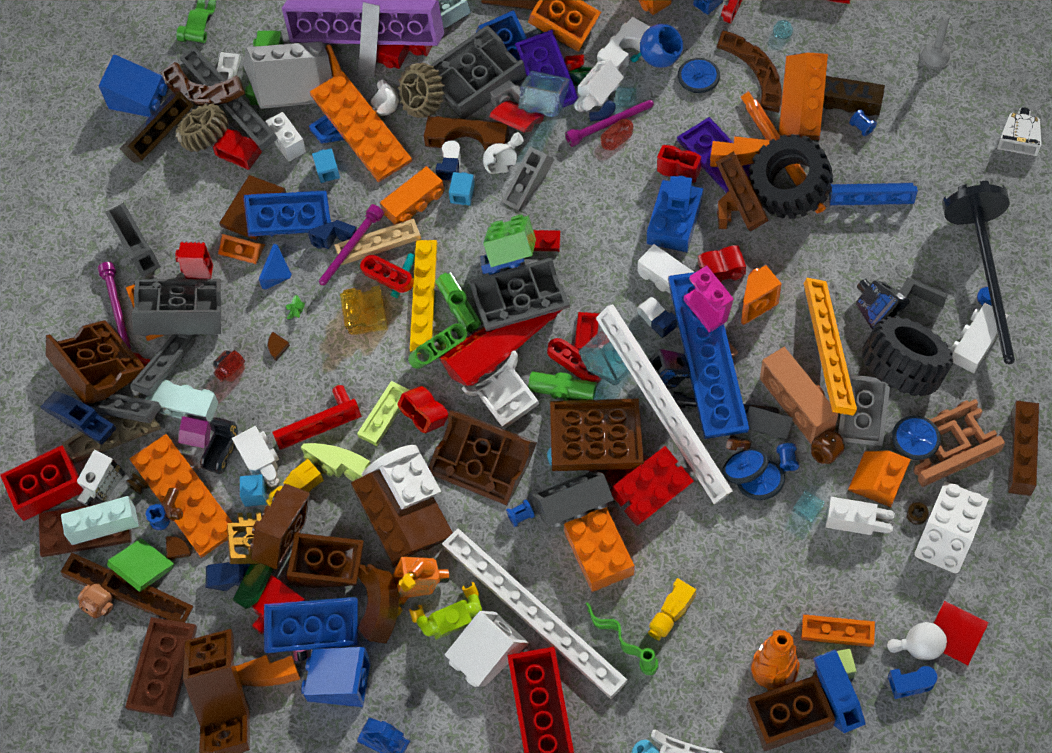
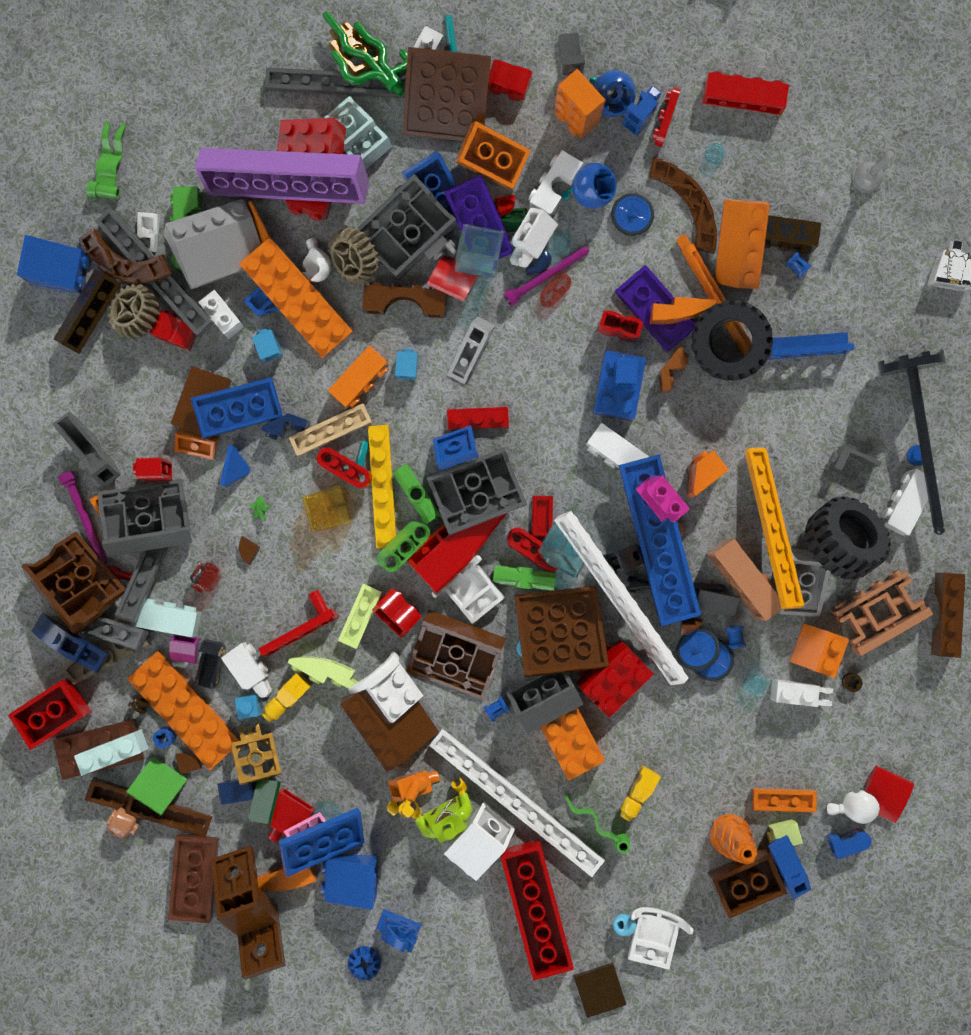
camera: 10 degrees left, 25 degrees up
(98, 478) = (102, 705): white torso -> none
(169, 505) = (173, 729): reddish brown arm -> none
(278, 525) = (279, 749): reddish brown brick -> none
(324, 561) = (325, 774): reddish brown slope -> none
(368, 39) = (292, 198): flat silver sticker -> none
(372, 215) = (322, 404): magenta piece -> none
(381, 606) = (382, 808): reddish brown arch -> none
(450, 162) = (392, 326): leg -> none
(500, 156) = (441, 326): white hair -> none
(509, 240) = (463, 437): bright green brick -> none
(657, 317) = (607, 497): leg -> none
(725, 263) = (667, 437): red brick -> none
(742, 191) = (685, 361): reddish brown plate -> none
(827, 447) = (773, 627): reddish brown head -> none
(879, 301) = (818, 474): torso -> none
(916, 437) = (853, 616): blue wheel -> none
(951, 527) = (886, 695): white bracket -> none

